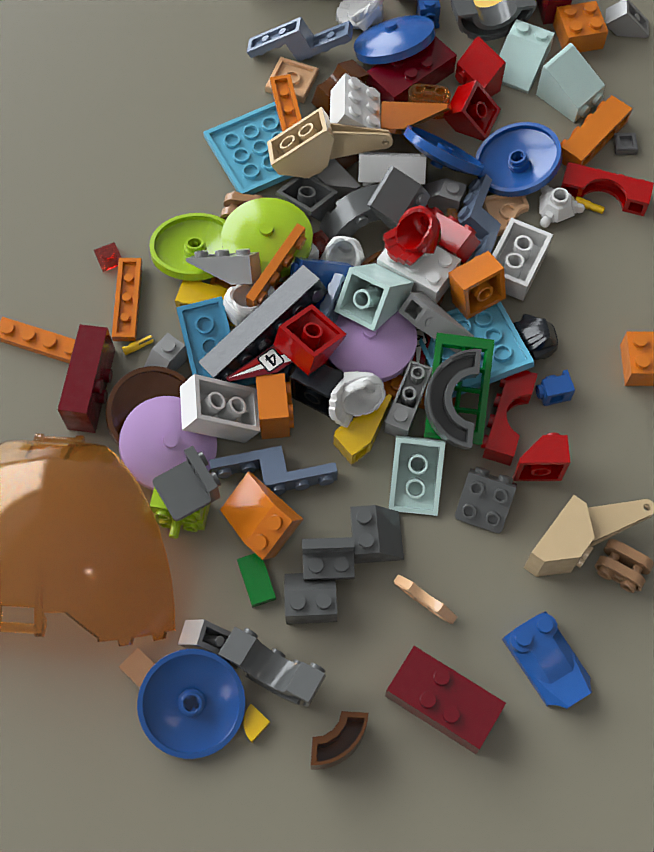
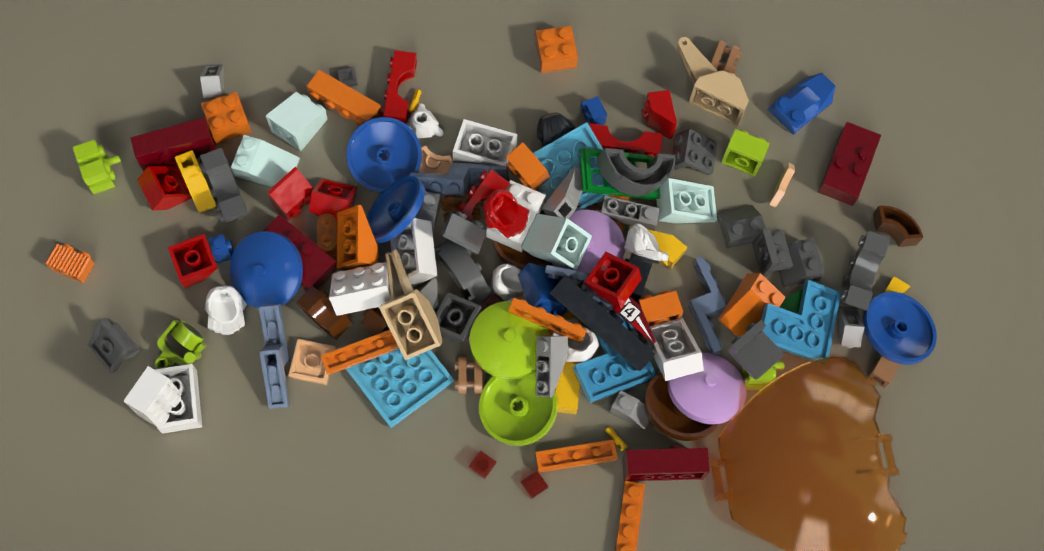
camera: 105 degrees left, 5 degrees up
(142, 210) = (482, 464): none -> clear red plate
(209, 578) = (809, 331): none -> dark azure plate
(474, 554) = (745, 152): none -> lime brick

